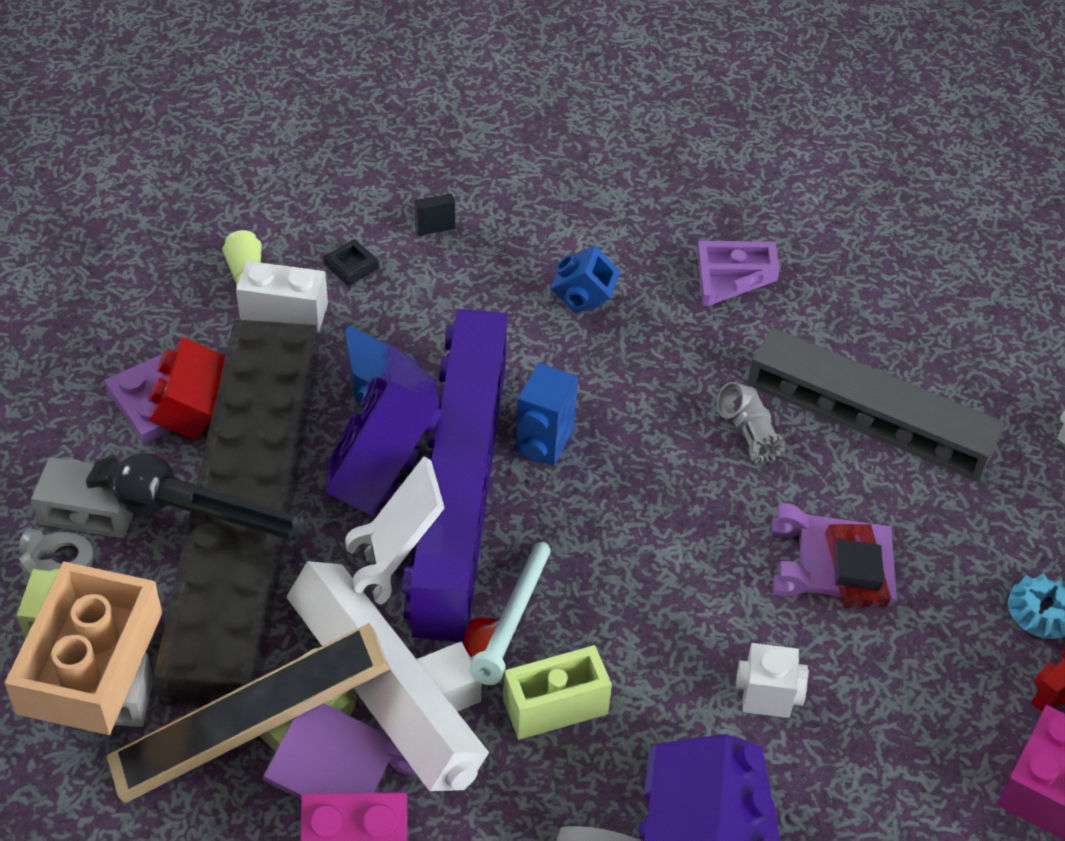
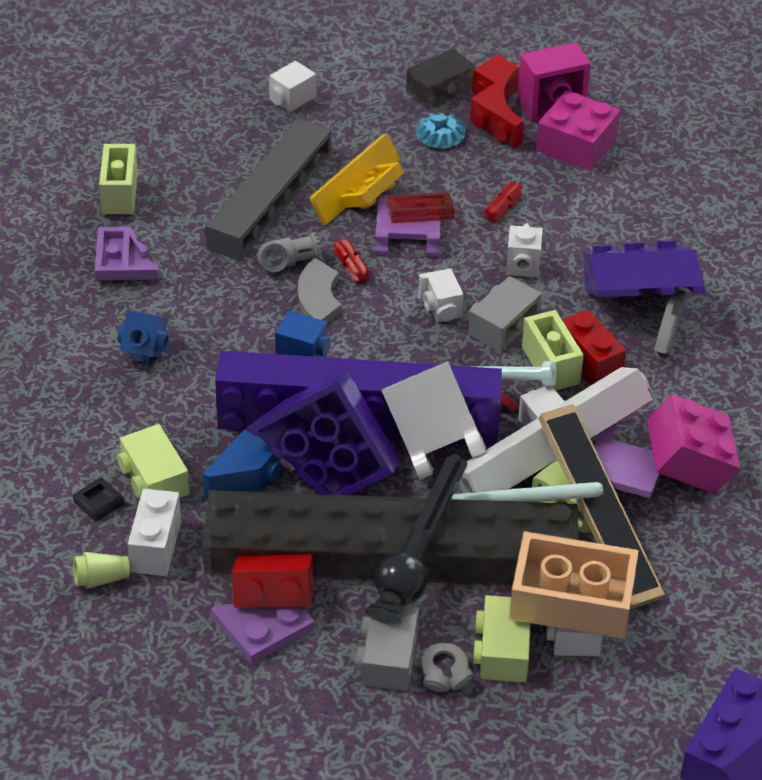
camera: 90 degrees left, 5 degrees down
(291, 561) = (537, 494): none -> light aqua bar
(384, 297) = (152, 462): none -> yellowish green brick
(434, 214) = (49, 436): black tile -> none
(568, 746) = (600, 349): none -> red brick
(644, 649) = (502, 313): none -> light grey brick
(675, 580) = (441, 295): none -> white brick
(685, 453) = (316, 291): none -> light grey tile
(740, 493) = (354, 263): none -> red piece
(858, 564) = (431, 198): black tile -> none
(859, 252) = (118, 179): none -> yellowish green brick
(904, 678) = (500, 204): none -> red piece
(907, 500) = (359, 181): none -> yellow bracket

